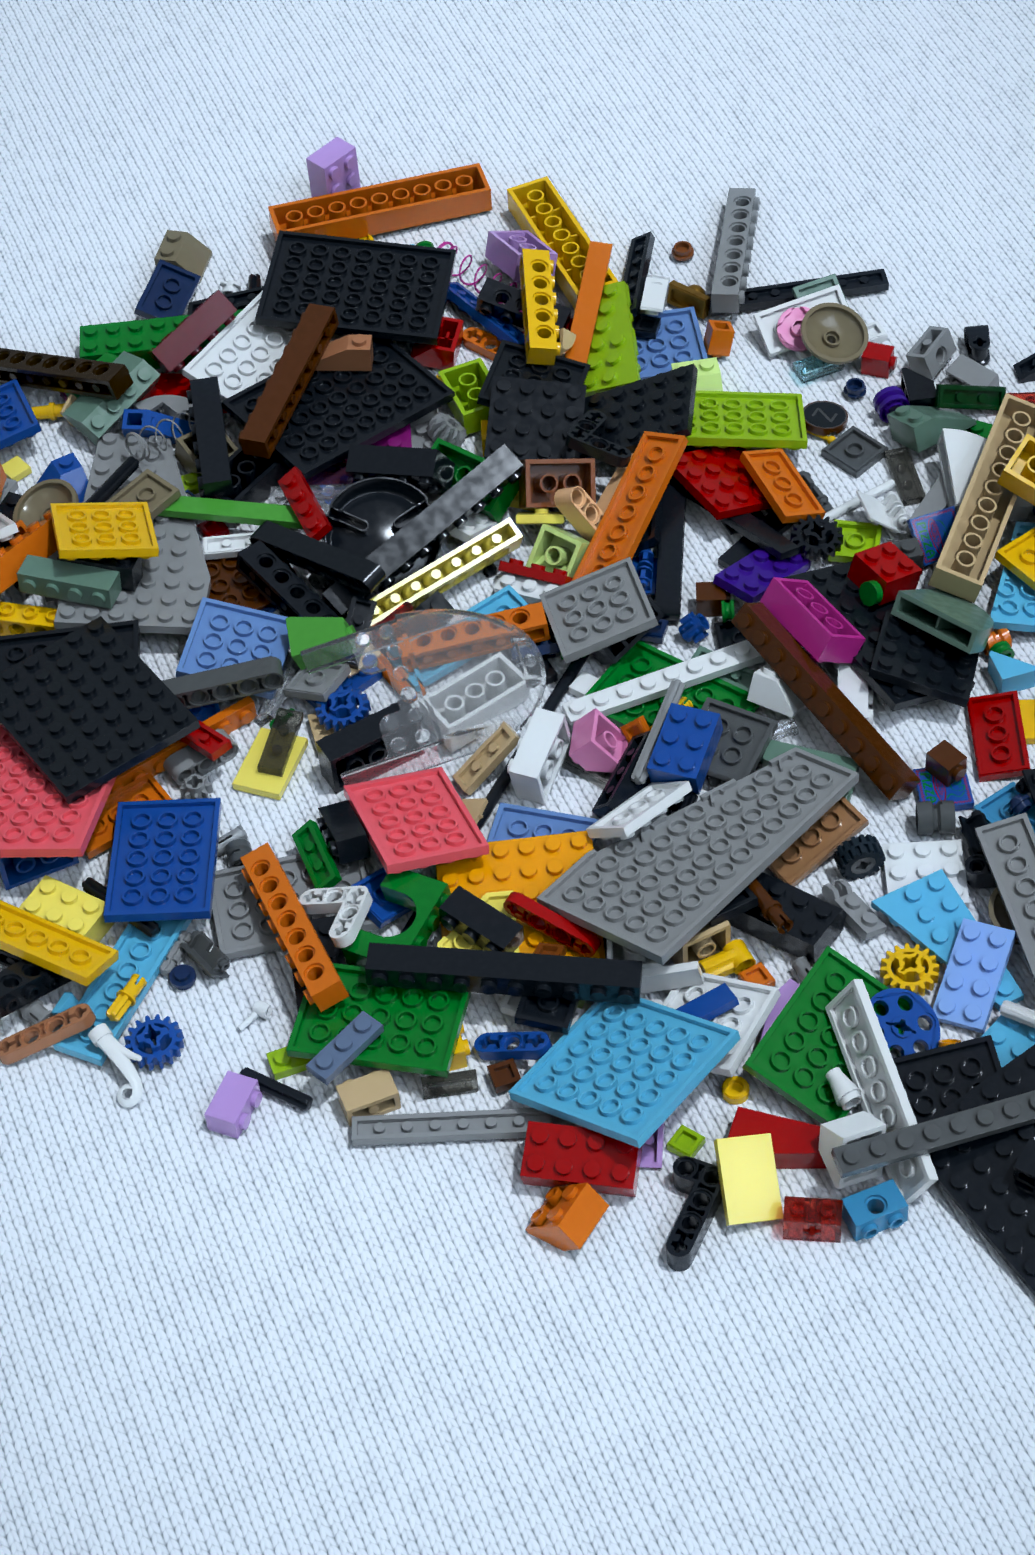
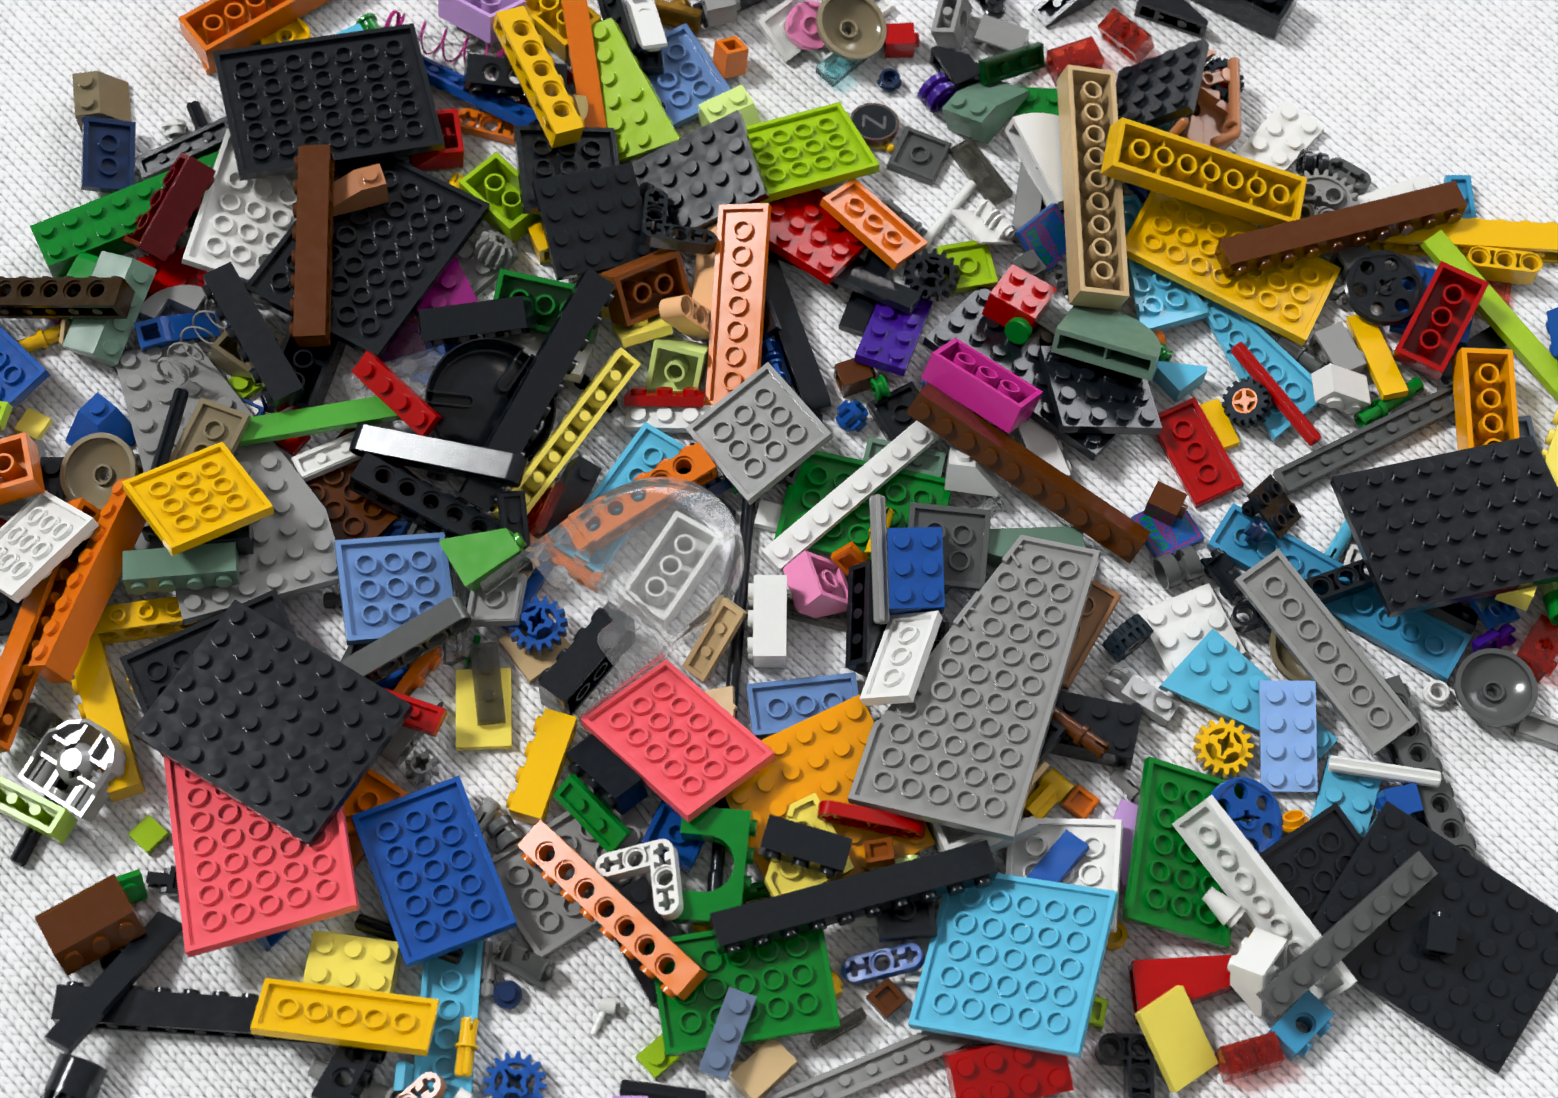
camera: 30 degrees left, 15 degrees up
(297, 809) = (543, 766): none -> yellow brick

